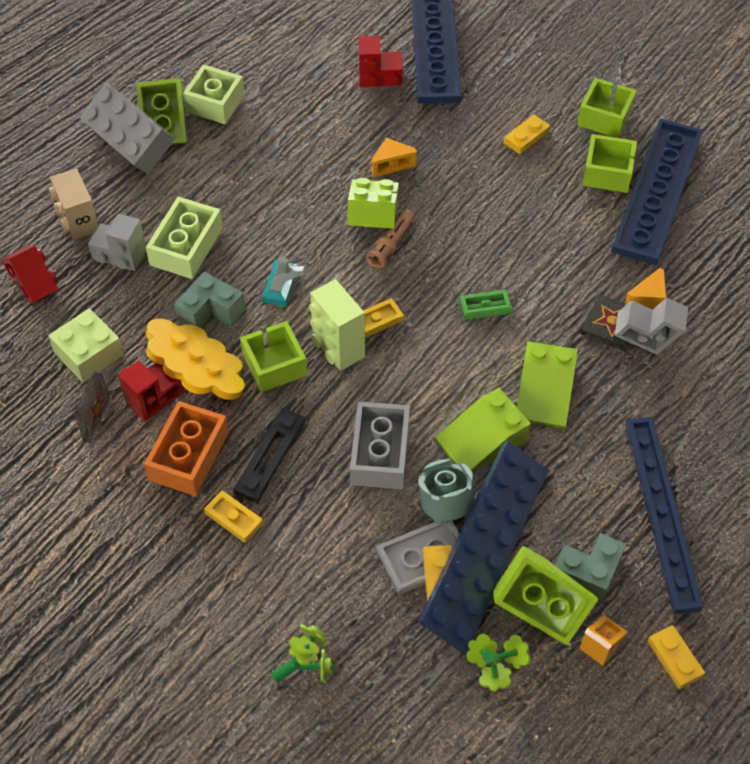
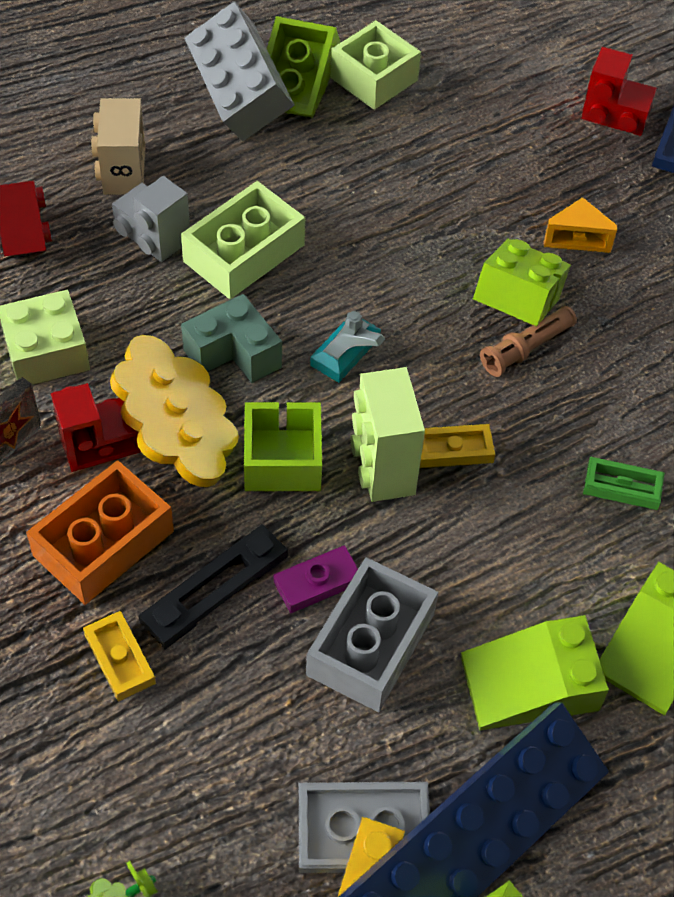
camera: 20 degrees right, 0 degrees up
(330, 428) = (315, 579): none -> magenta plate
(446, 490) = (436, 742): sand green brick -> none

